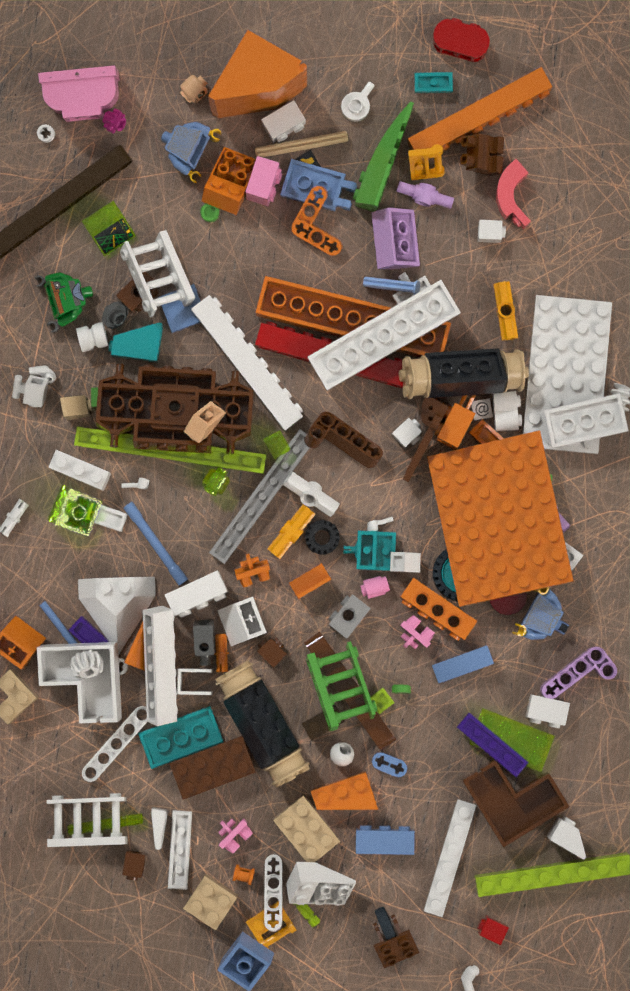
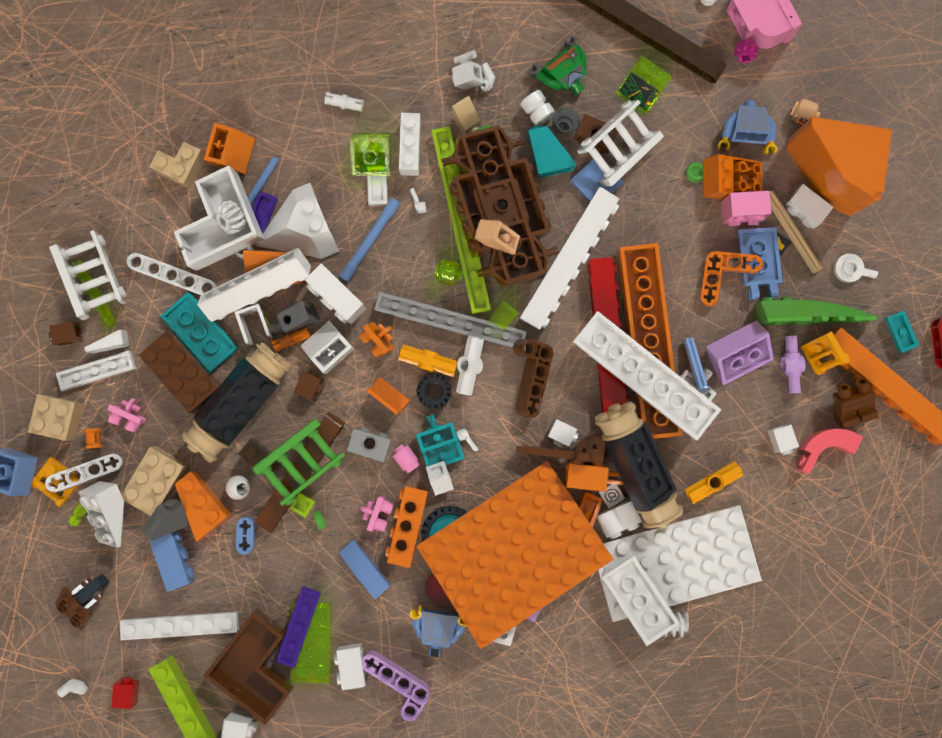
camera: 65 degrees right, 0 degrees up
(347, 829) = (166, 519): none -> dark grey slope

